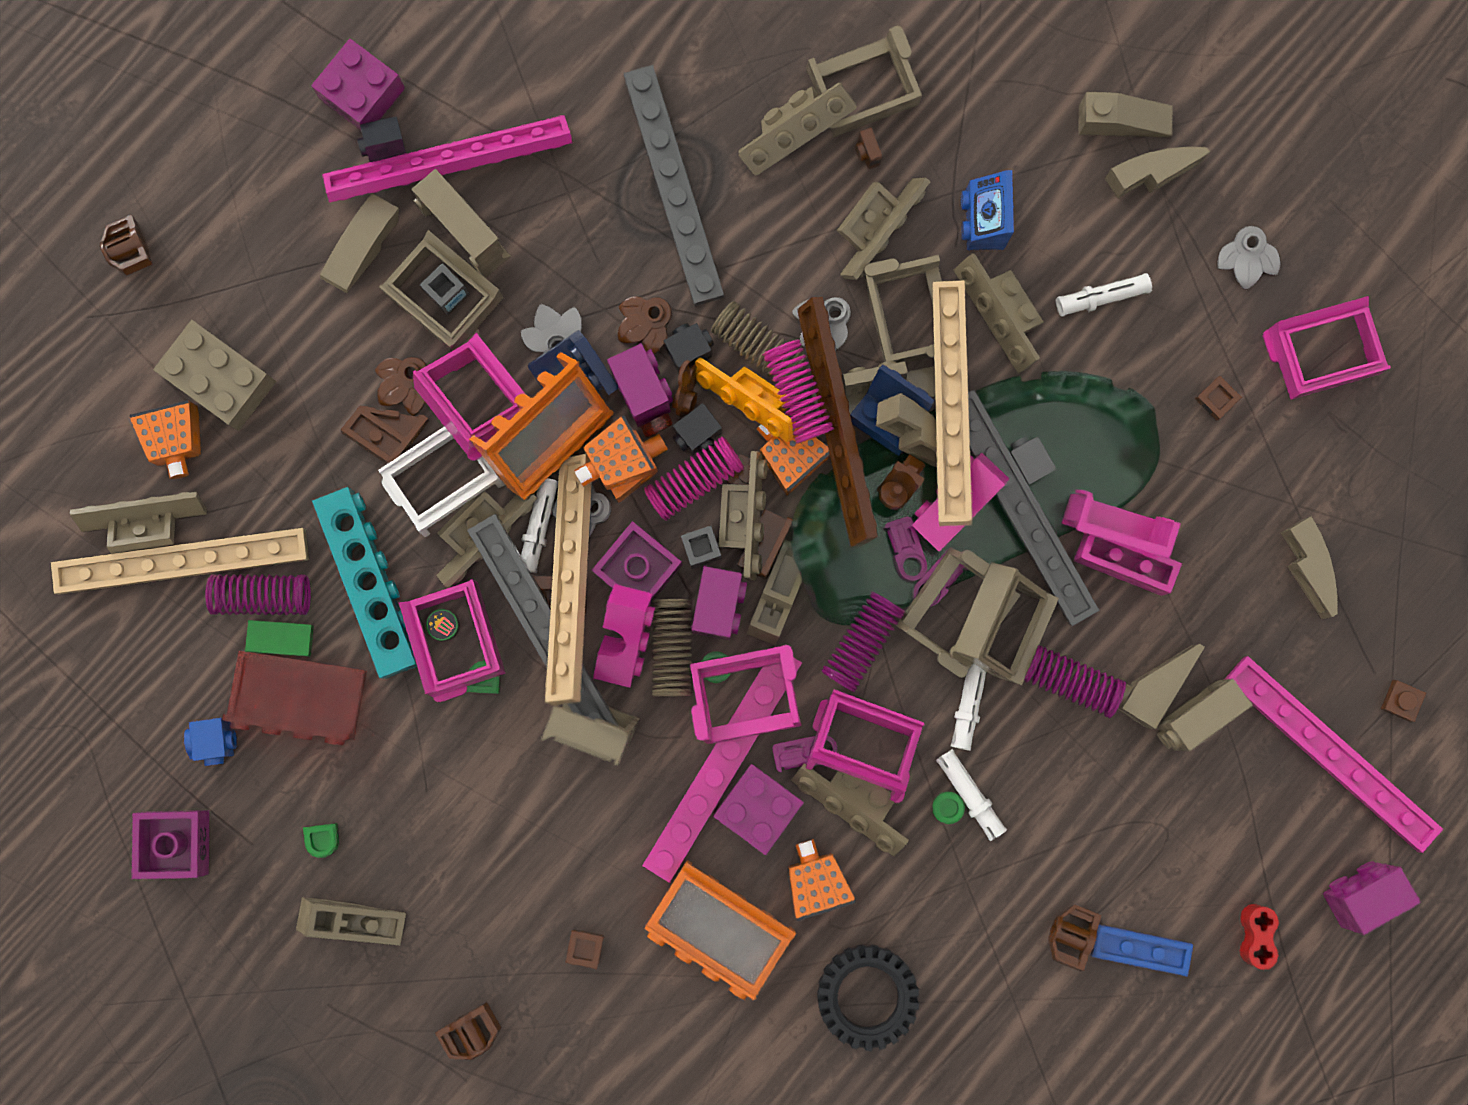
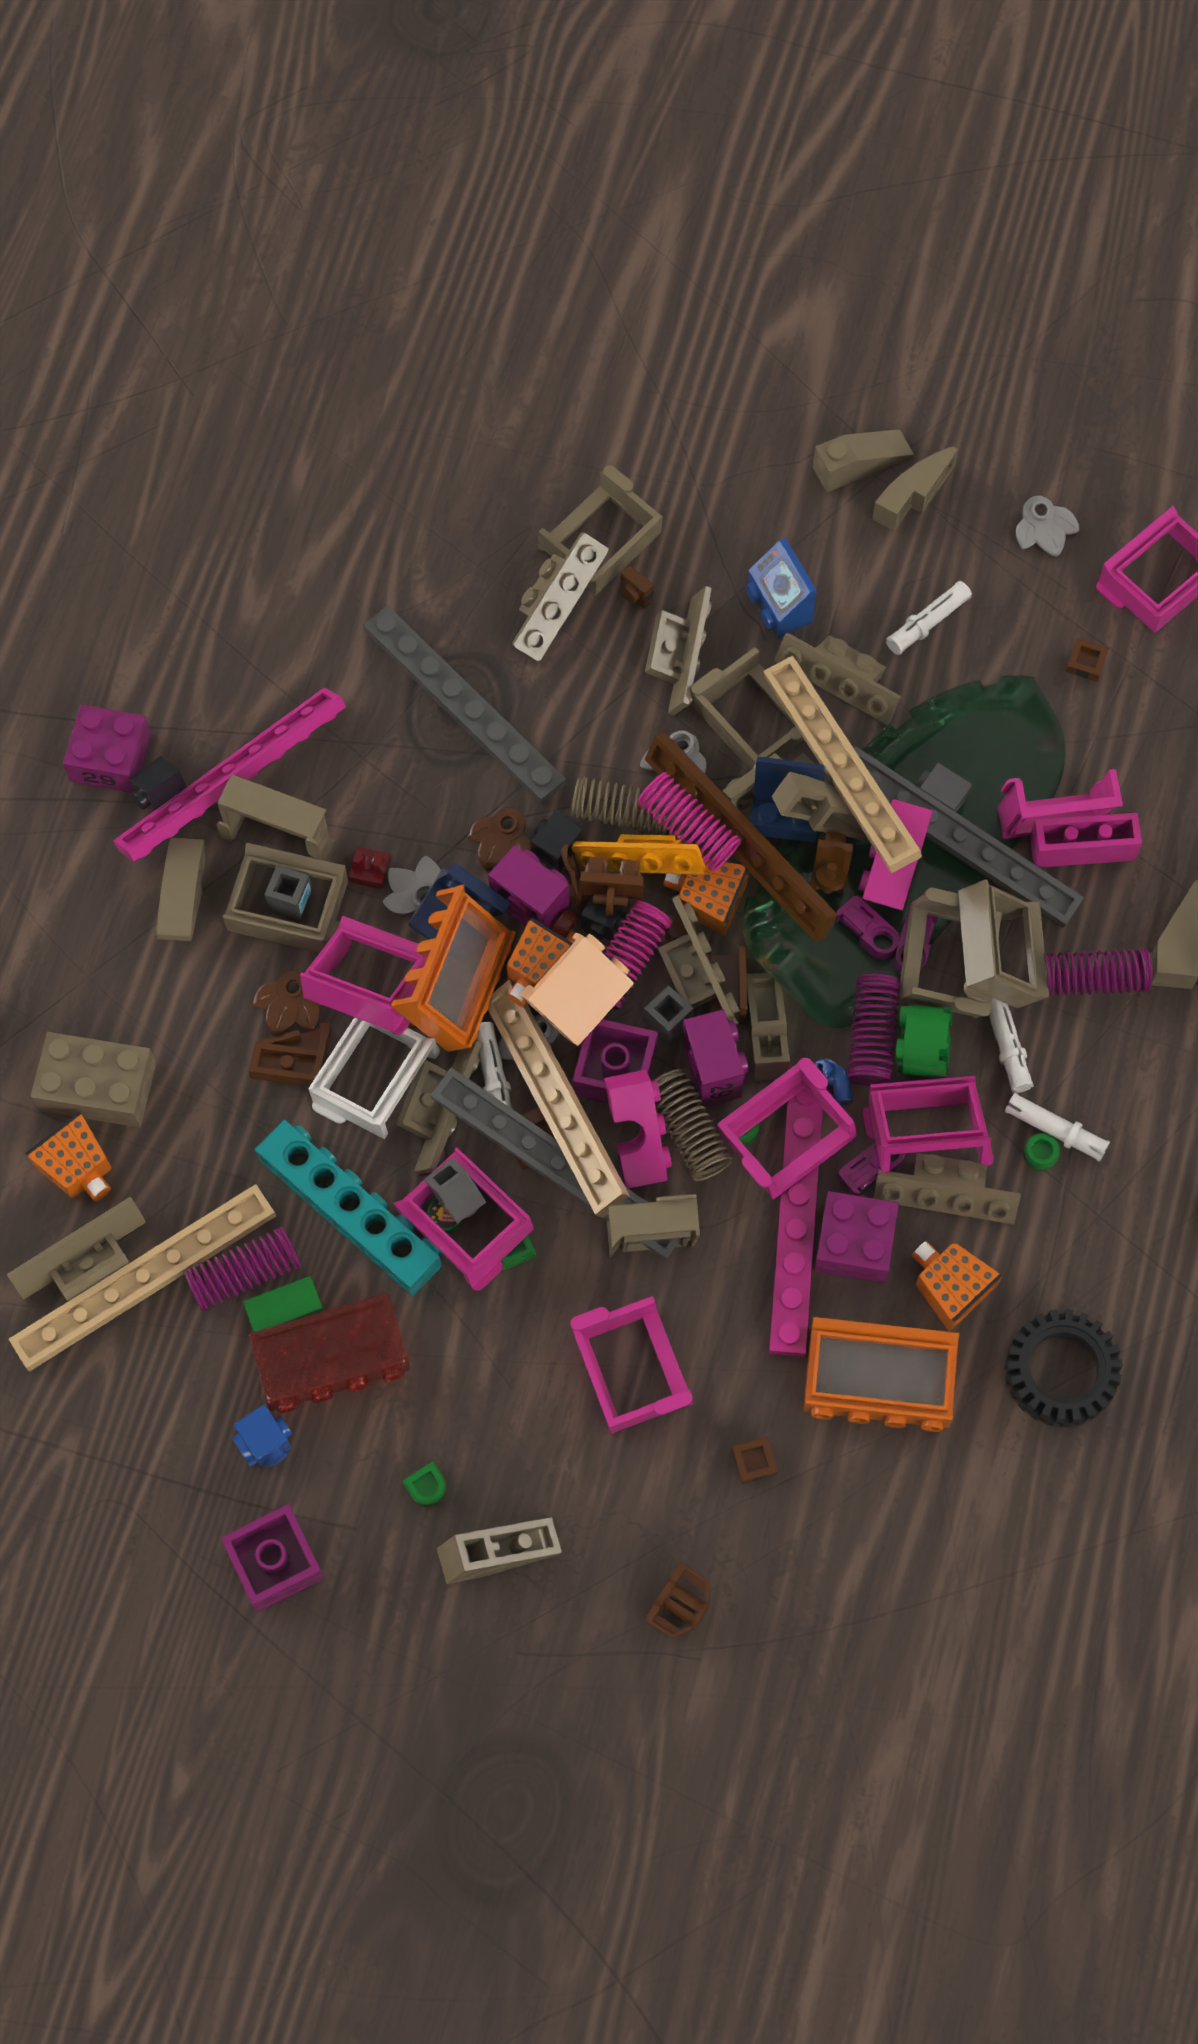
camera: 25 degrees left, 15 degrees down
(452, 616) = (455, 1190): none -> dark grey brick
(494, 821) = (601, 1321): none -> dark pink piece
(525, 295) = (369, 867): none -> dark red tile
(631, 498) = (579, 989): none -> light nougat panel
(721, 420) = (612, 888): none -> reddish brown hips
(813, 662) = (837, 1080): none -> blue arm
(899, 673) = (924, 1041): none -> green brick

